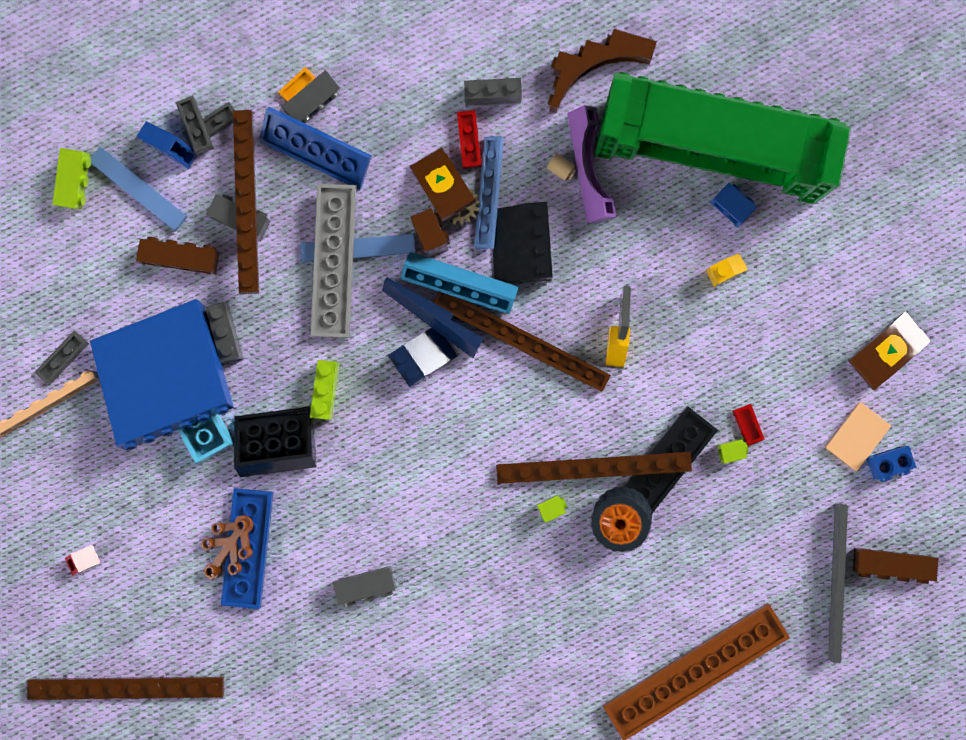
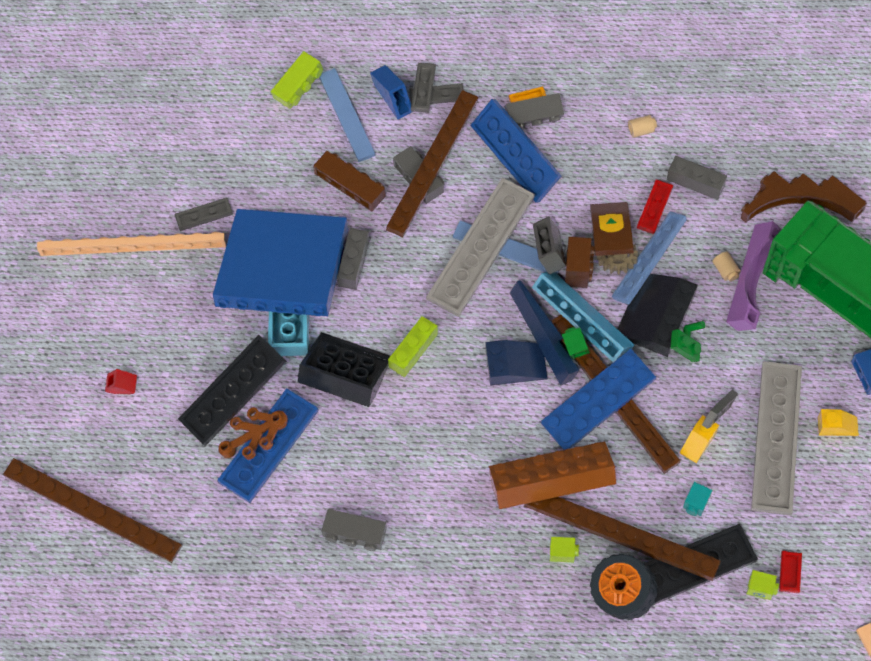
camera: 30 degrees right, 20 degrees down
(186, 518) = (232, 390): none -> black plate
(395, 231) = (549, 245): none -> dark grey brick
(417, 62) = (642, 126): none -> tan brick
(467, 314) = (575, 342): none -> green brick
(509, 448) = (552, 475): none -> dark orange brick
(513, 356) = (598, 400): none -> blue plate
(563, 264) = (684, 344): none -> green plate
(642, 403) = (697, 499): none -> teal brick
(681, 308) = (776, 438): none -> light grey plate

